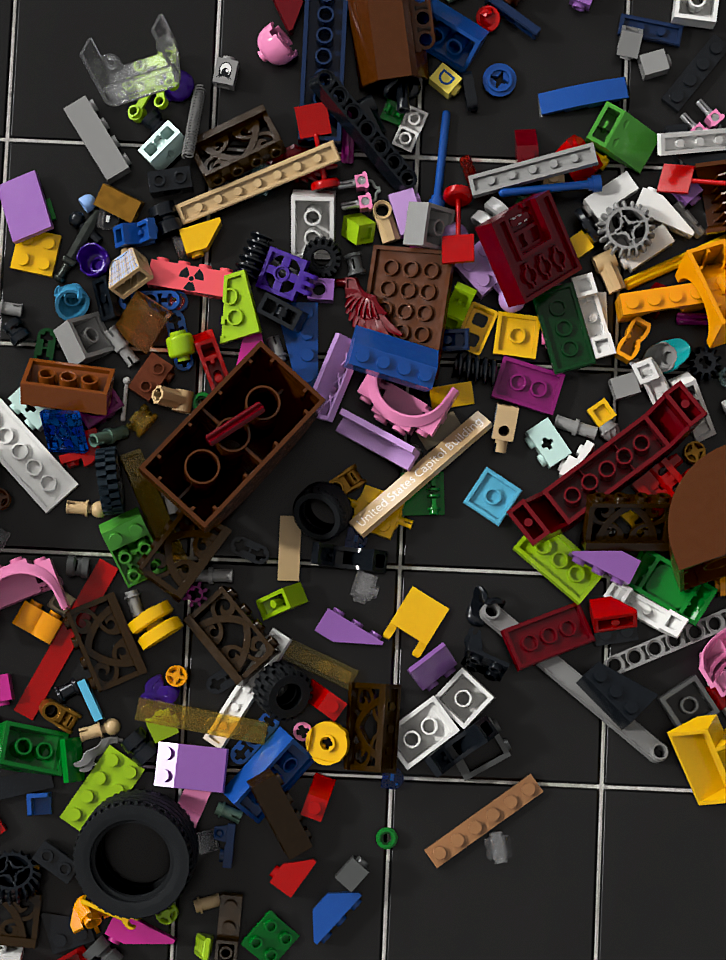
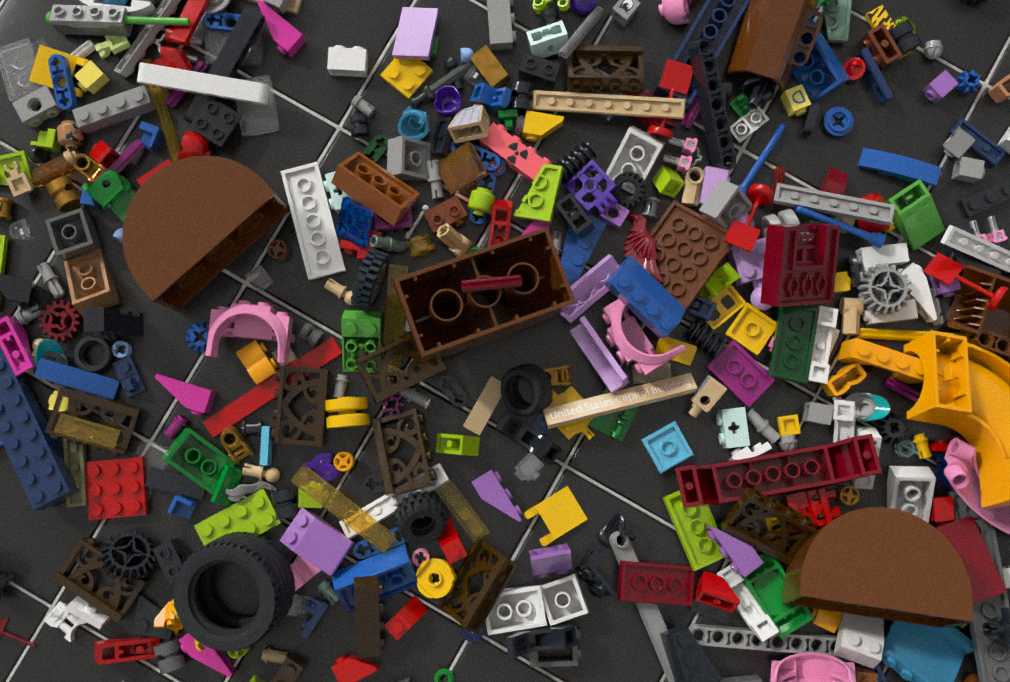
camera: 25 degrees right, 0 degrees up
(163, 245) = (507, 117): none -> green tile

